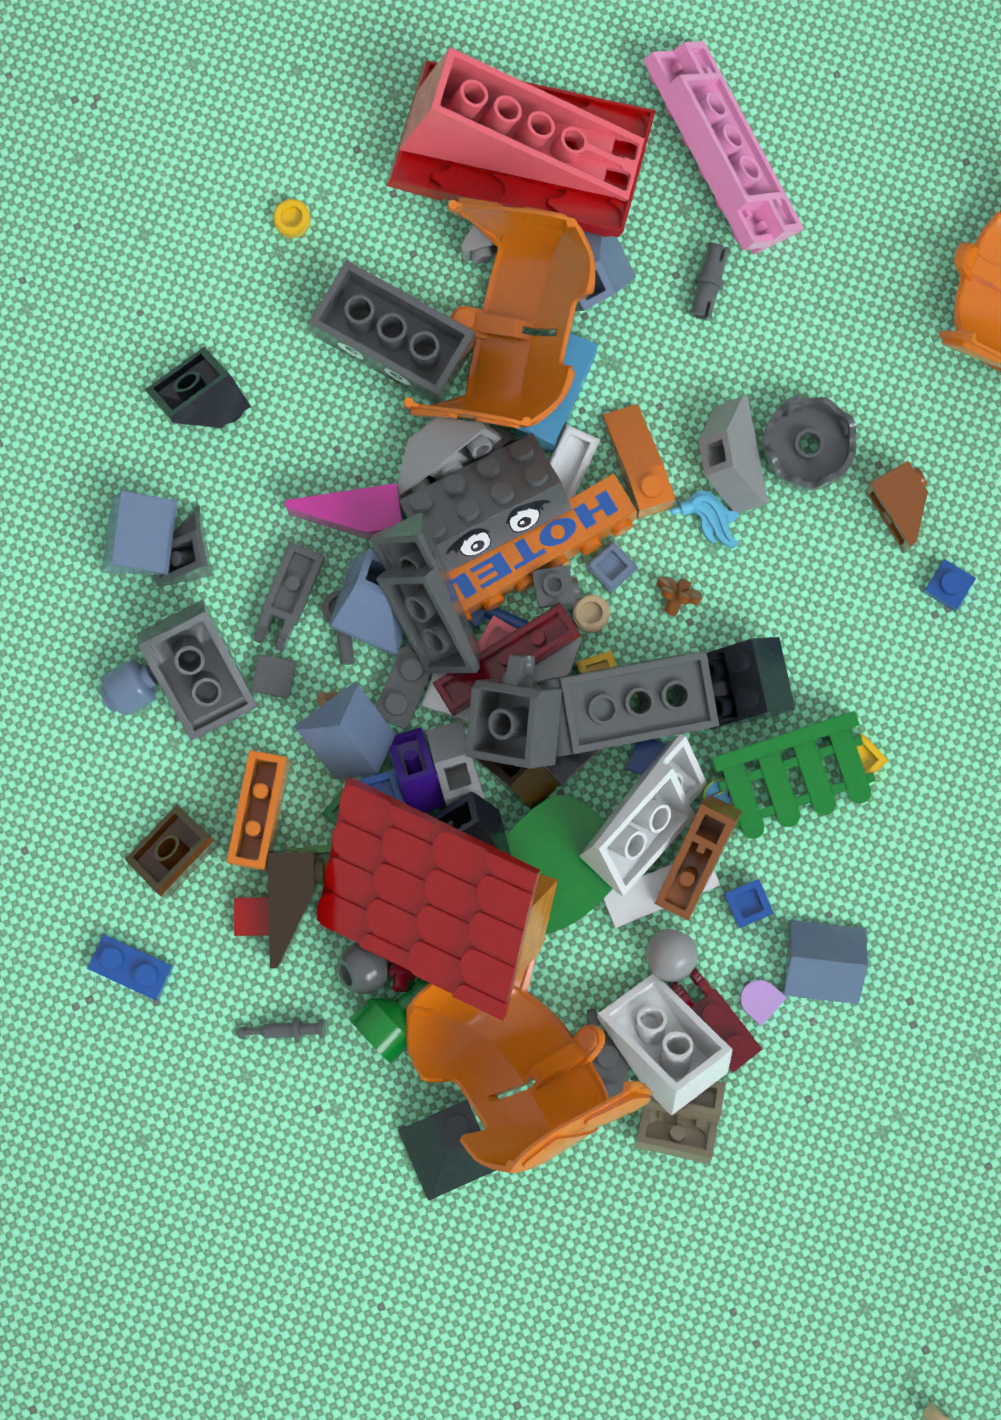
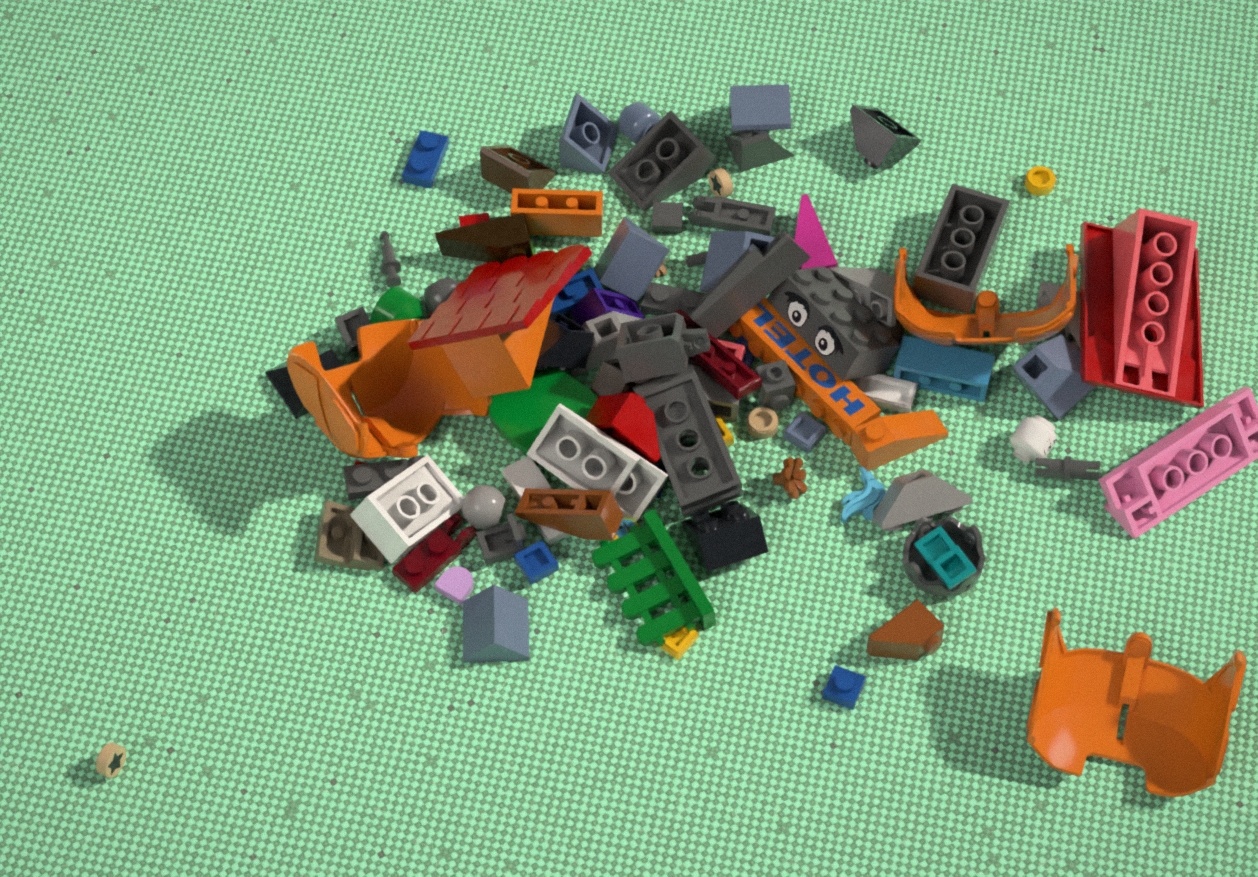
camera: 85 degrees right, 25 degrees down
(140, 756) = (586, 138): none -> sand blue slope
(238, 602) = (720, 183): none -> tan tile
(392, 1082) = (348, 326): none -> dark grey bracket
(606, 776) = (628, 422): none -> red slope
(668, 310) = (1033, 439): none -> white head
(717, 940) = (501, 541): none -> dark grey bracket
(823, 441) = (945, 557): none -> teal slope

